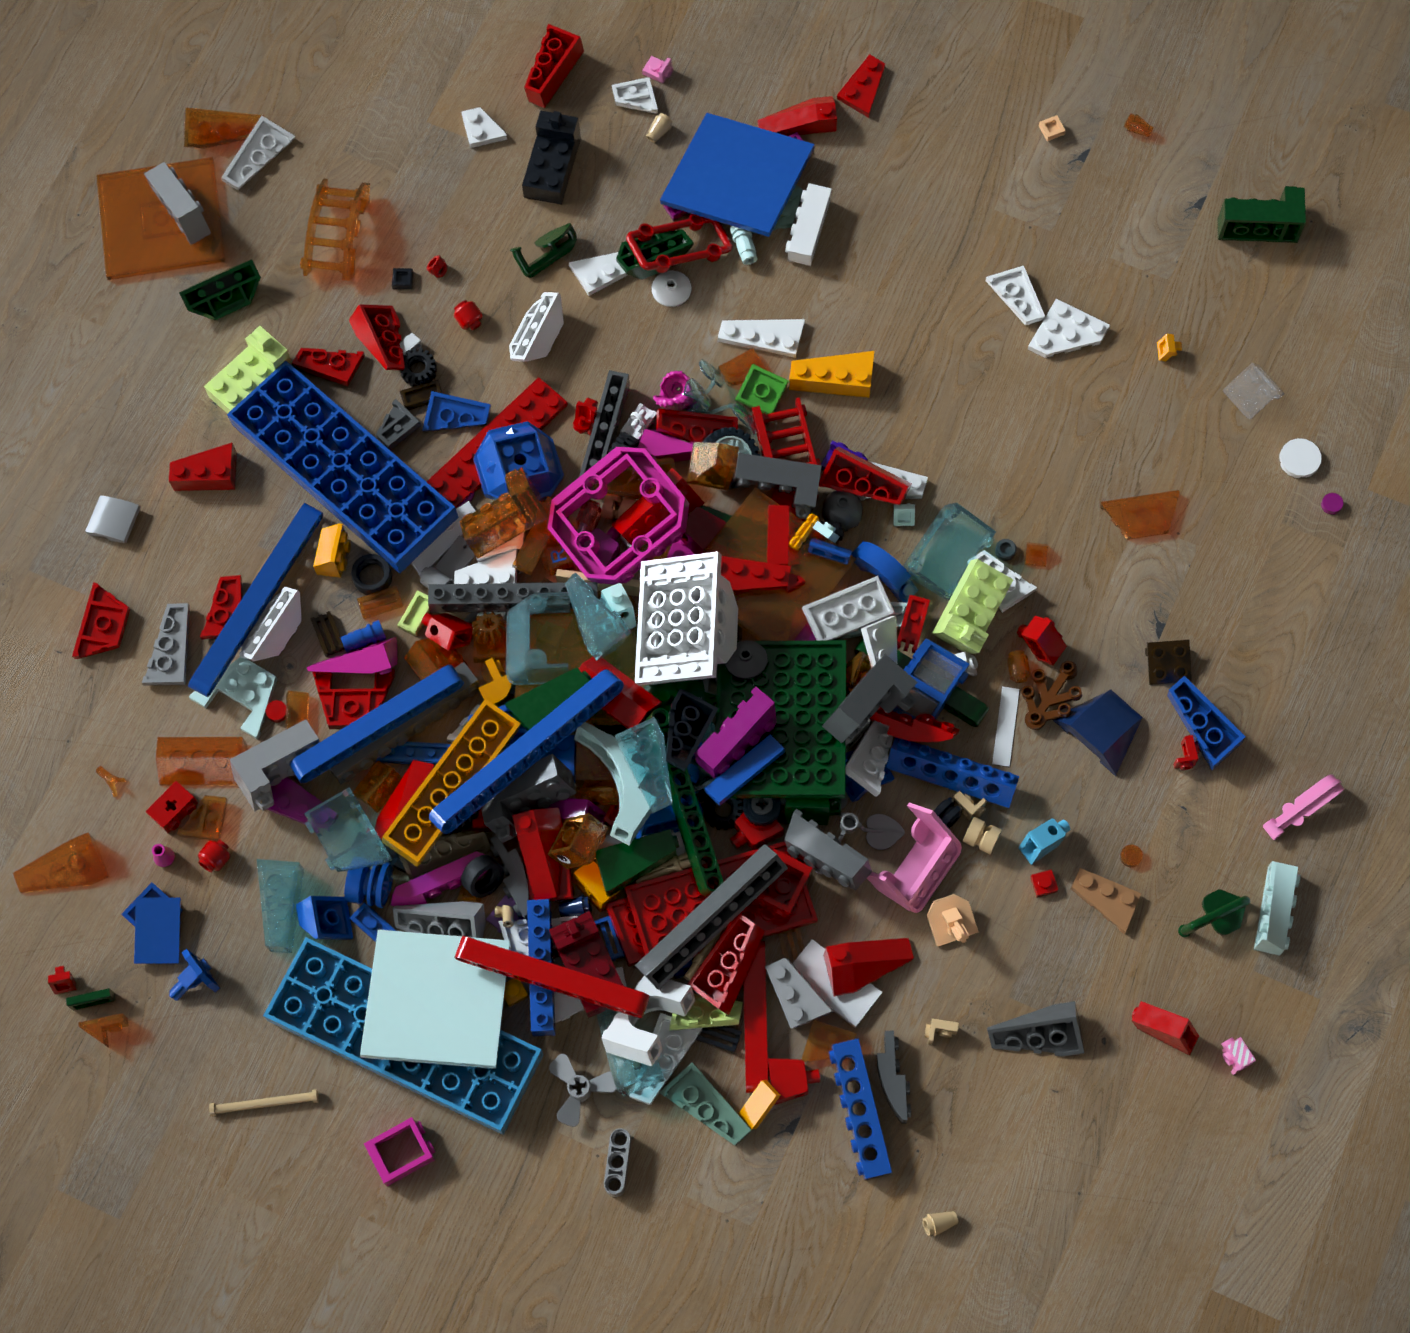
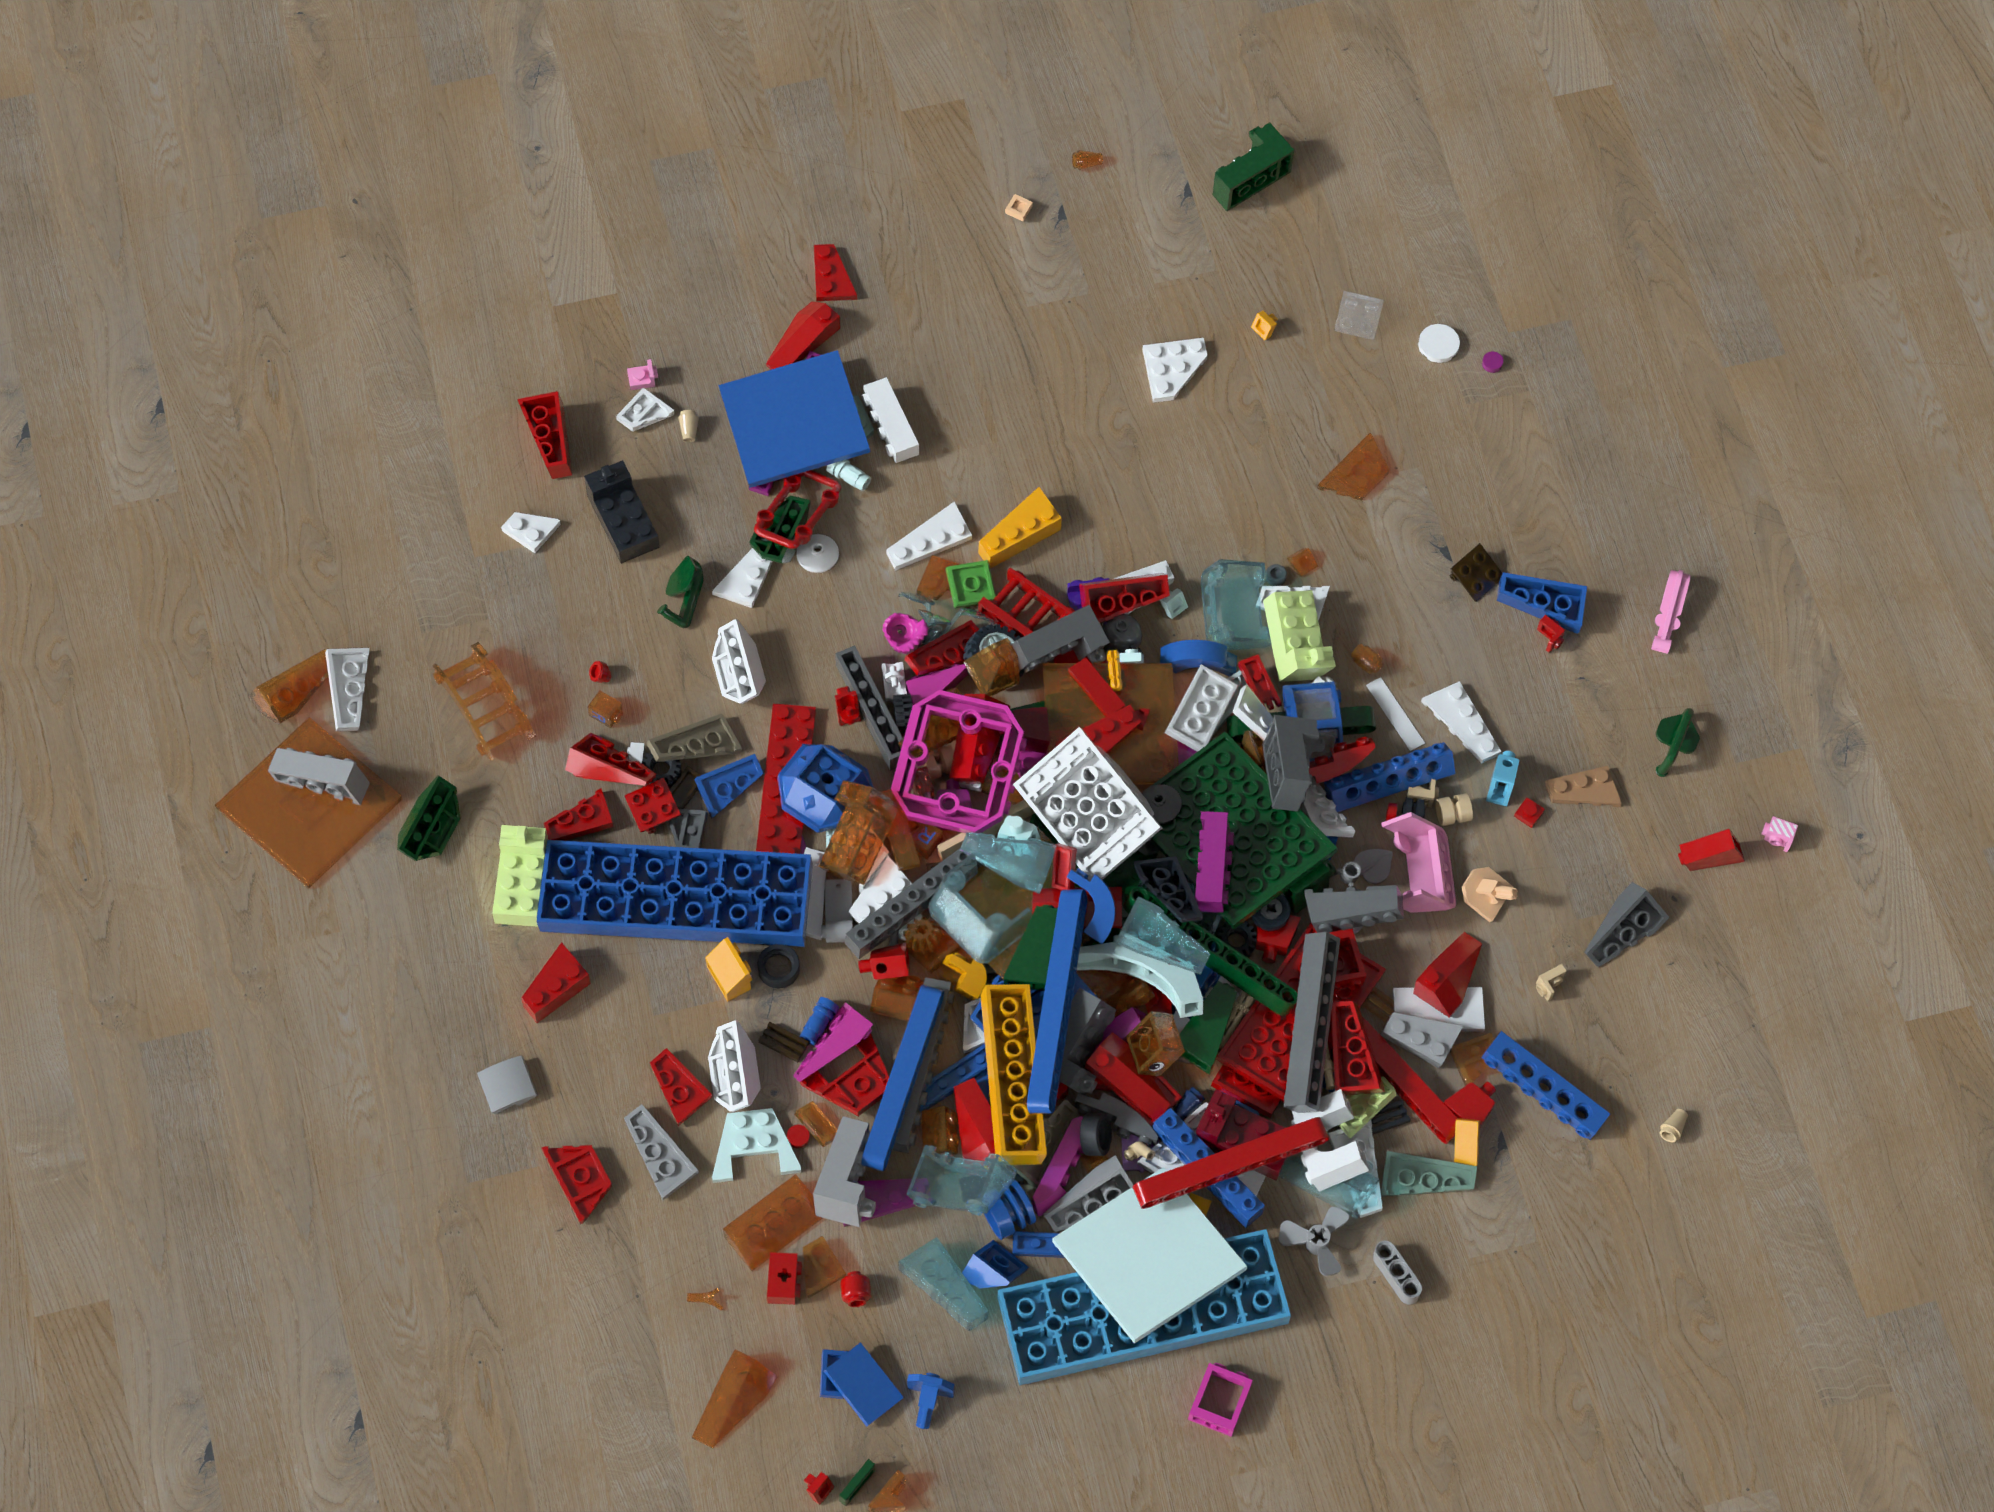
camera: 45 degrees left, 5 degrees down
(162, 855) = (810, 1327): dark pink cone -> none
(255, 600) = (701, 1057): blue beam -> none
(265, 1102) = (1075, 1450): tan bar -> none
(380, 610) = (795, 999): clear orange tile -> none
(384, 390) = (652, 805): none -> red hinge
(402, 278) = (576, 704): black tile -> none
(414, 613) = (844, 970): yellowish green tile -> none
(416, 295) = (605, 709): none -> clear orange brick
(459, 365) = (696, 740): none -> dark tan wing
(468, 315) = (666, 694): red head -> none
(590, 883) = (1184, 1075): light orange hinge -> none
(627, 654) = (1063, 862): none -> red tile
(628, 702) = (1104, 904): none -> blue arch
(744, 770) = (1242, 887): blue tile -> none
(829, 551) = (1148, 671): blue slope -> none
(893, 1085) = (1552, 1051): dark grey slope -> none
(931, 800) = (1391, 811): none -> red tile
(1018, 293) = (1109, 362): white wing -> none
(1043, 639) = (1370, 623): red brick -> none
(1050, 697) = (1411, 665): reddish brown plant -> none
(1055, 767) = (1460, 715): none -> white wing
(1104, 727) = (1469, 658): dark blue wedge -> none
(1131, 855) = (1575, 743): clear orange tile -> none
(1276, 908) = (1714, 702): light aqua wedge -> none

